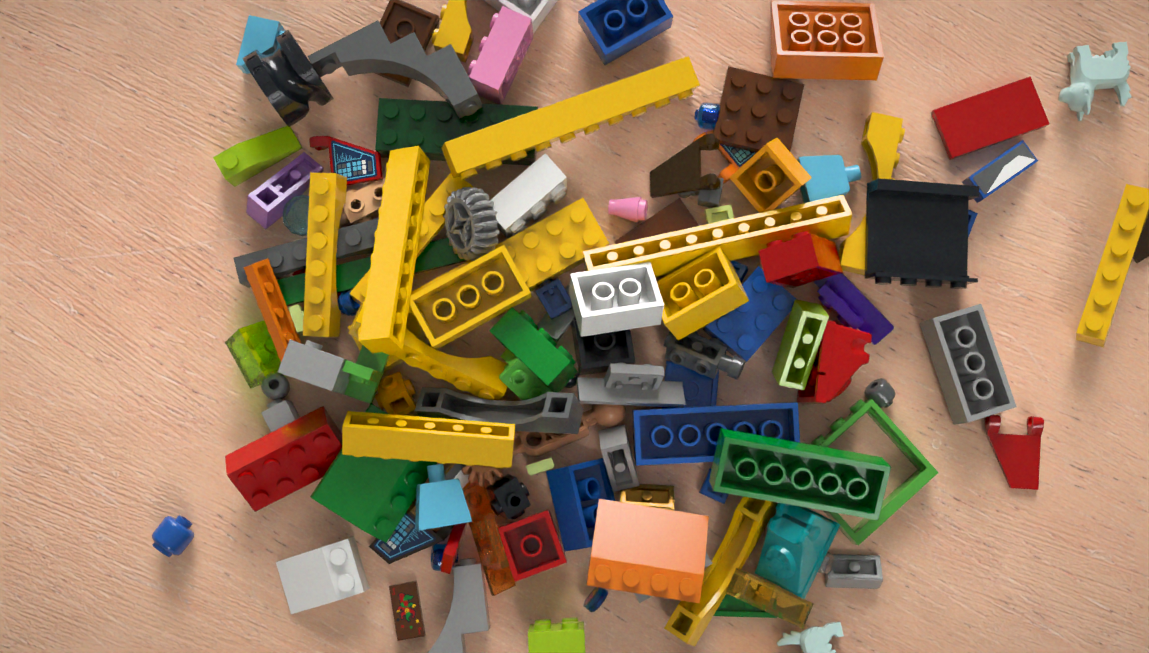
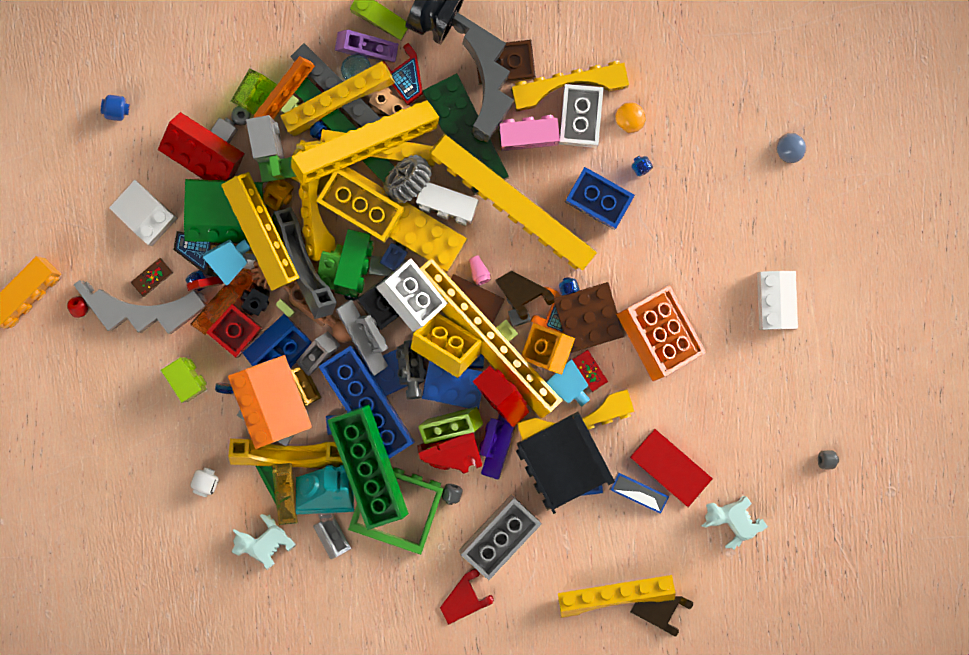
camera: 55 degrees right, 5 degrees up
(821, 145) = (590, 370): none -> red tile

